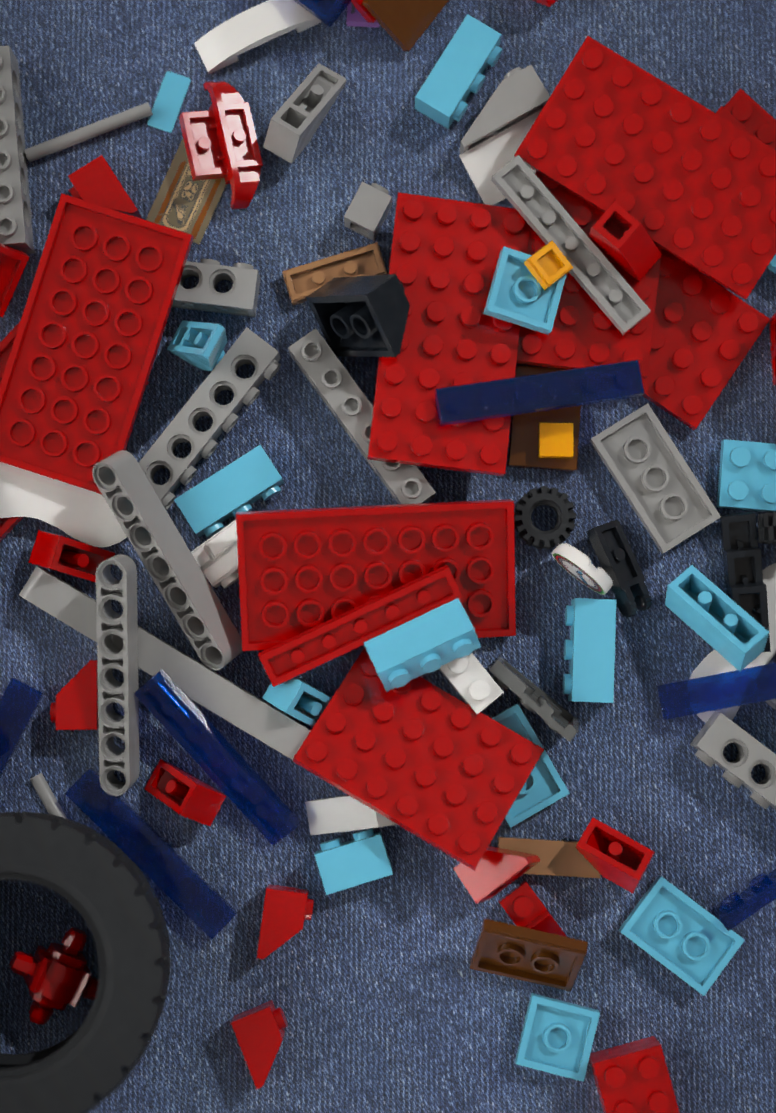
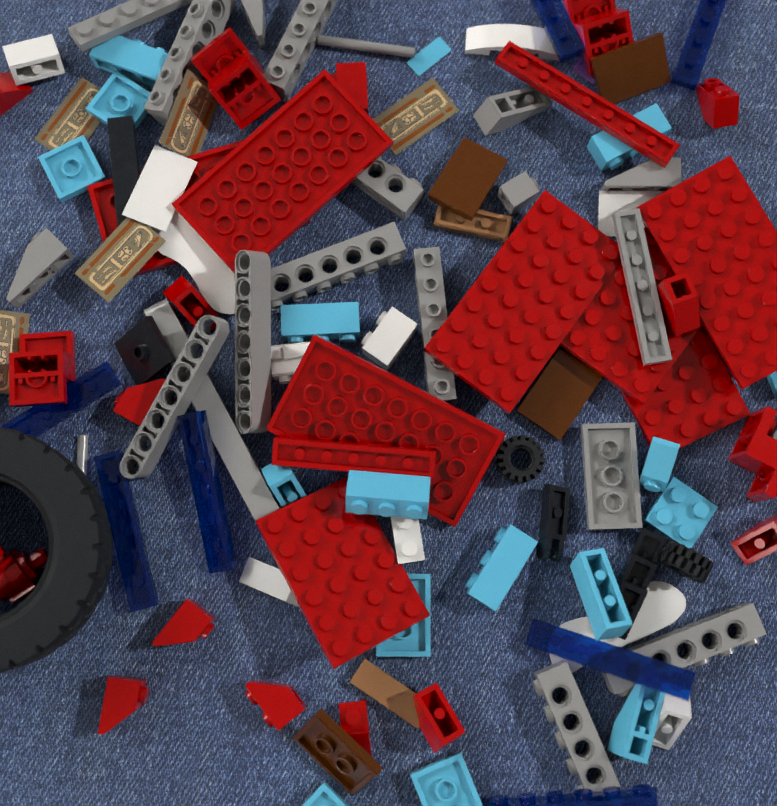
camera: 30 degrees right, 5 degrees down
(49, 641) = (144, 351): none -> black plate
(185, 793) = (172, 503): red slope -> none
(199, 344) = (357, 215): medium azure slope -> none
(224, 143) = (448, 99): red plate -> none
(300, 226) = (467, 179): none -> reddish brown tile
(318, 465) = (389, 338): none -> white brick
(353, 861) = (256, 616): medium azure brick -> none
(362, 315) = (474, 254): black slope -> none
(387, 61) = (587, 104): none -> red tile
(430, 938) = (277, 701): none -> red slope
(494, 872) = (347, 680): slope -> none
(518, 295) = (594, 299): medium azure plate -> none
(535, 699) = (443, 577): dark grey wing -> none
(539, 392) = (564, 371): clear blue plate -> none
(548, 265) = (618, 290): light orange tile -> none
(555, 440) = (557, 411): light orange tile -> none
(580, 568) = (525, 506): white tile -> none
(701, 437) = (658, 464): none -> medium azure slope

